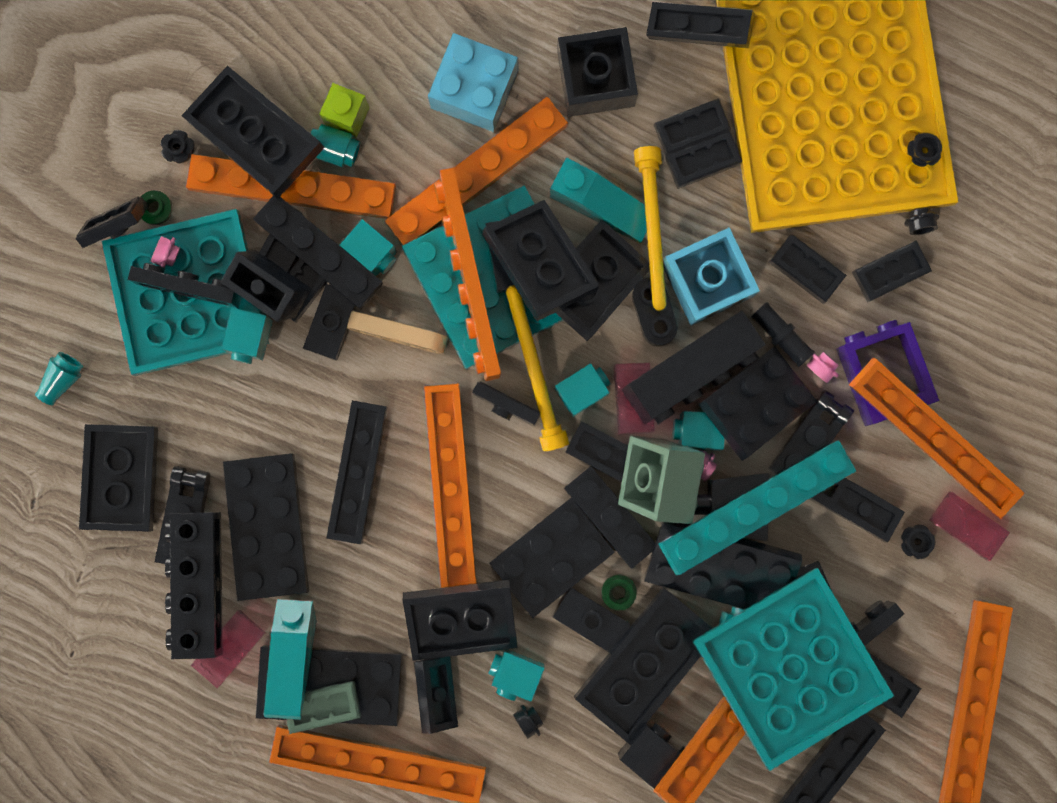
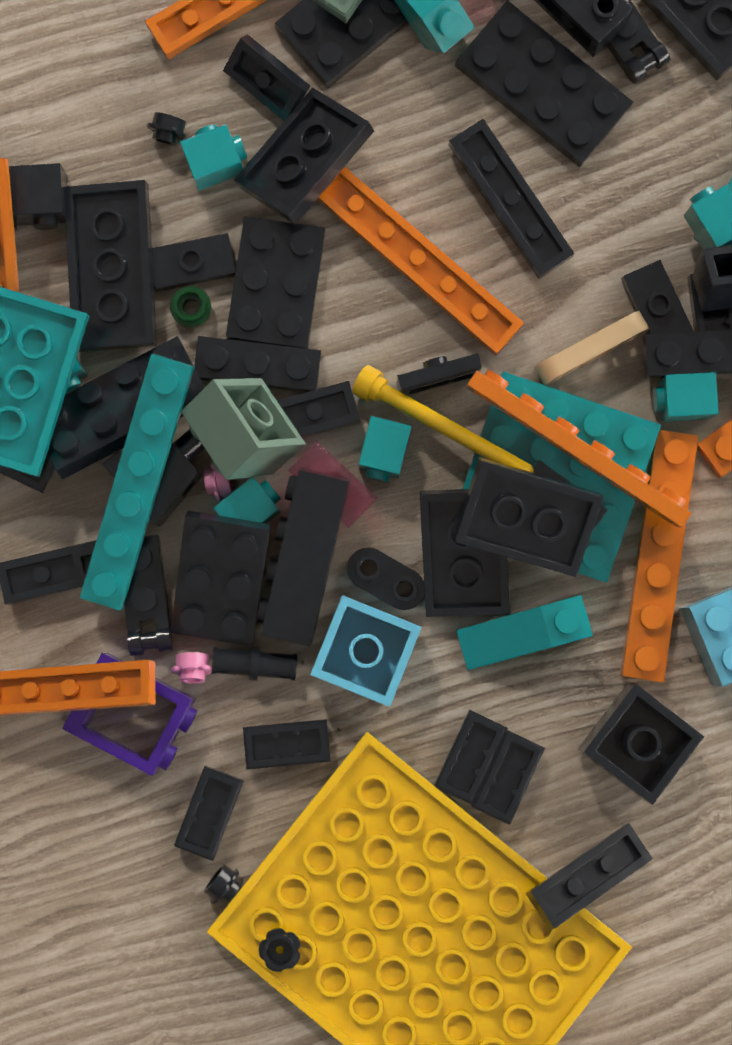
camera: 135 degrees right, 0 degrees up
(648, 160) = (518, 707): yellow piece -> none

